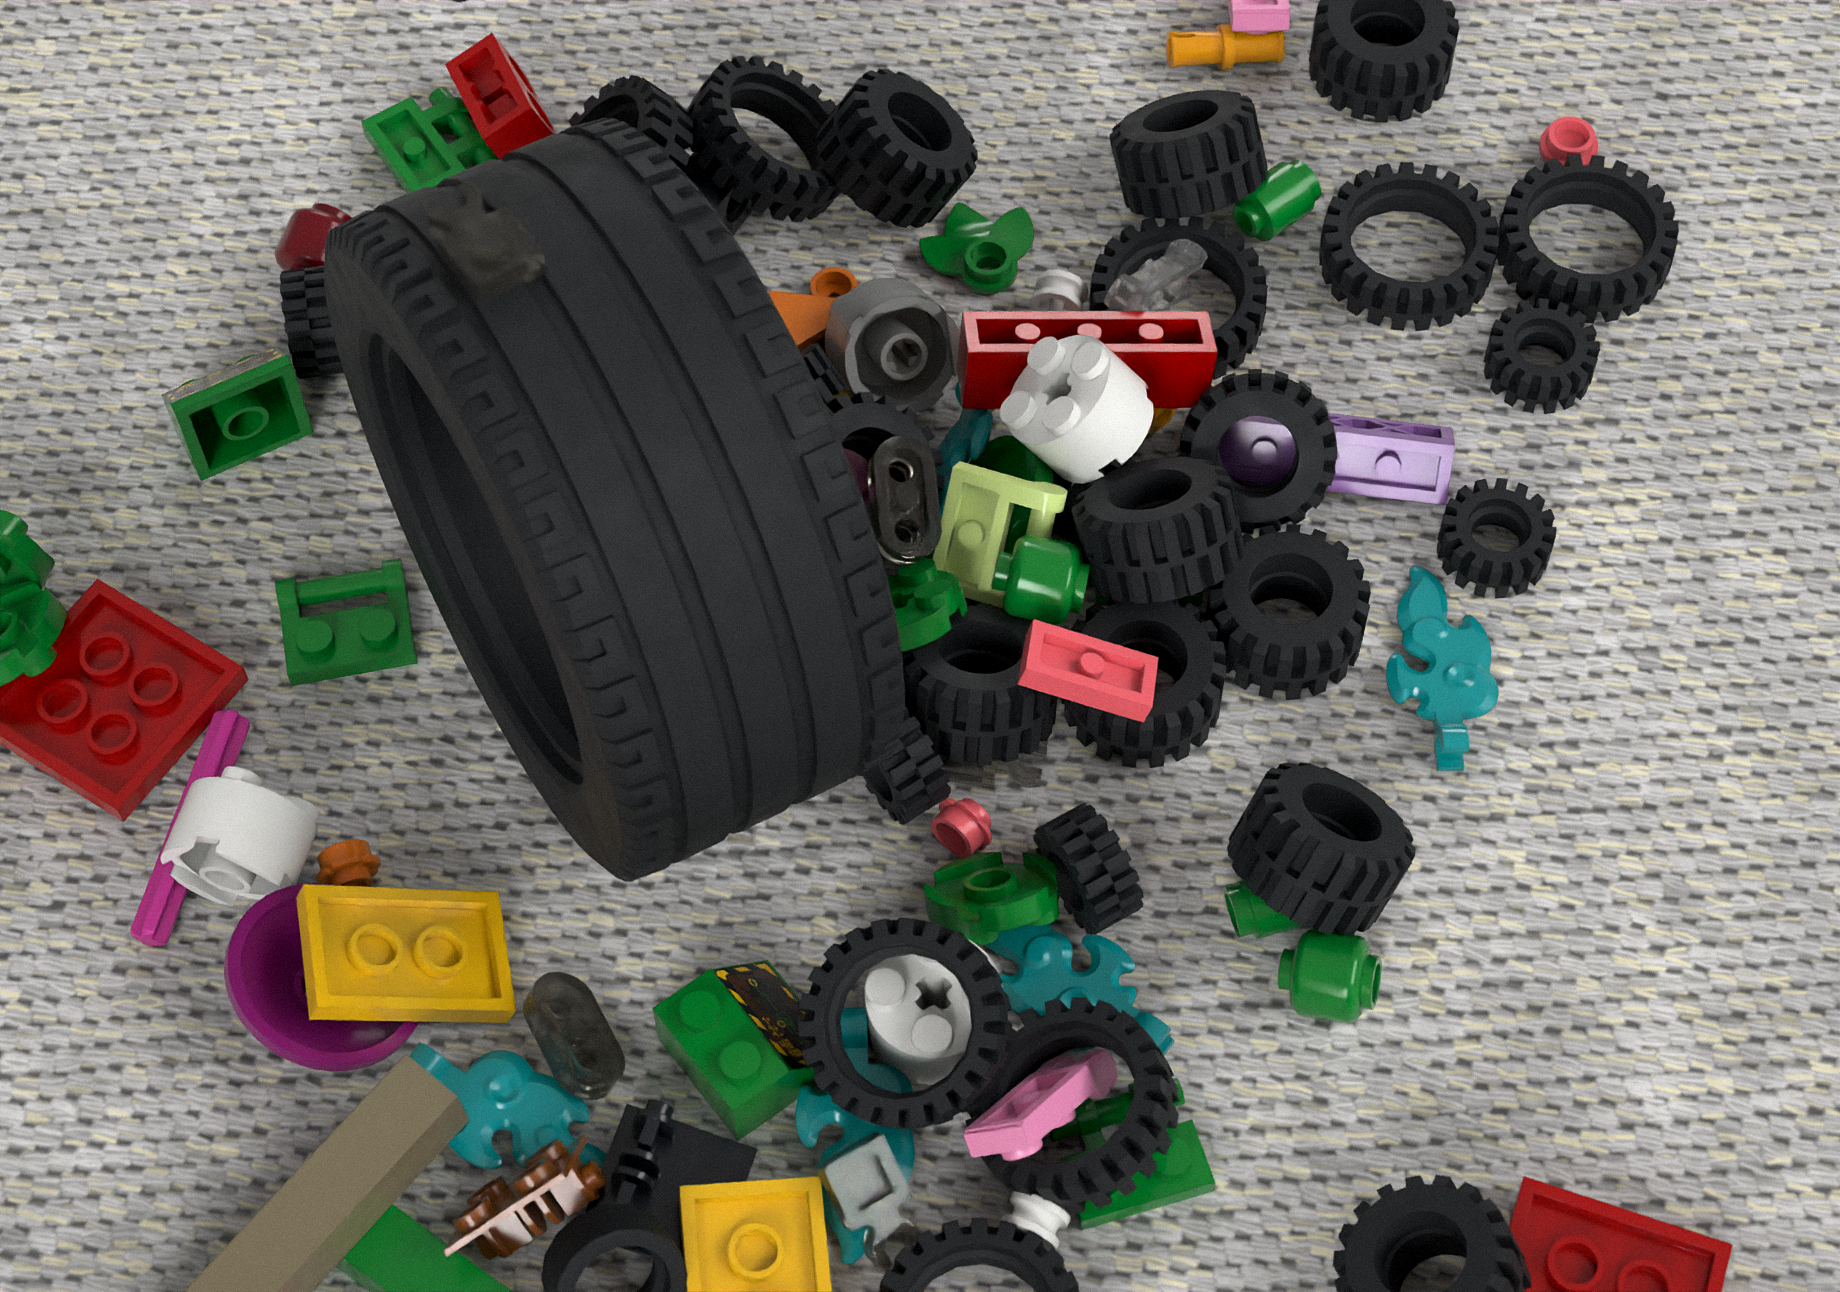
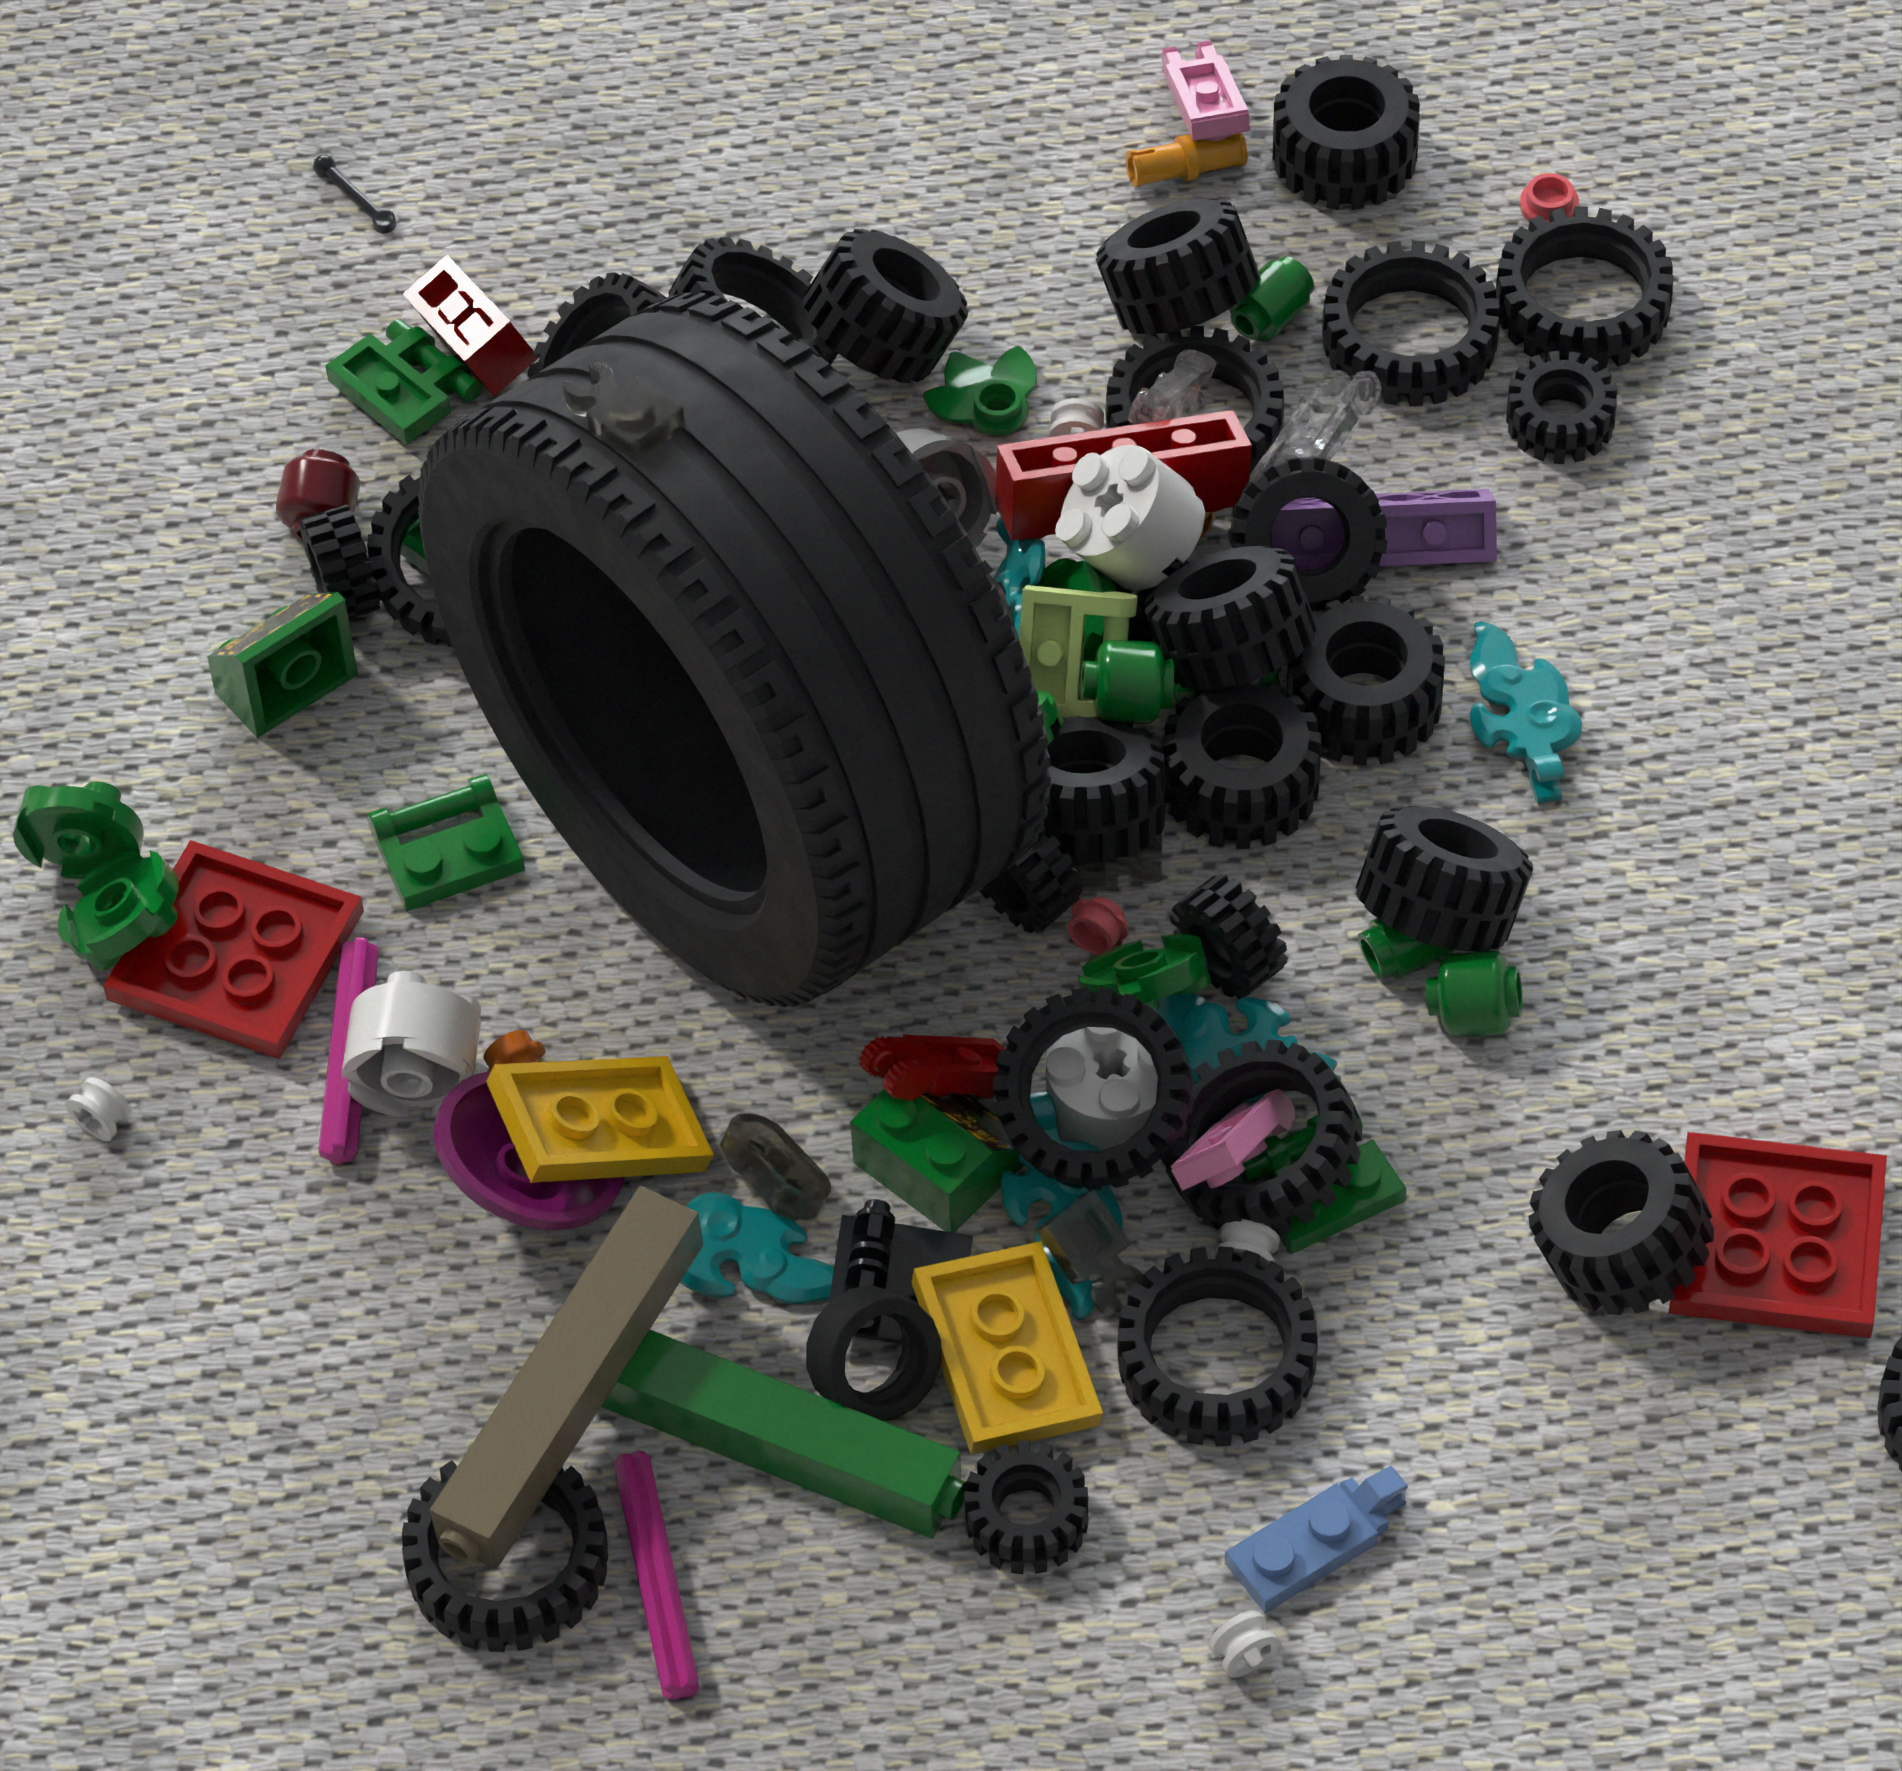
camera: 10 degrees left, 5 degrees down
(506, 1217) = (741, 1321): dark orange hinge -> none
(751, 960) = (933, 1065): none -> red hinge
(1088, 671) = (1194, 753): coral plate -> none
(1300, 332) = (1324, 418): none -> clear hinge
(1503, 509) = (1551, 609): black tyre -> none

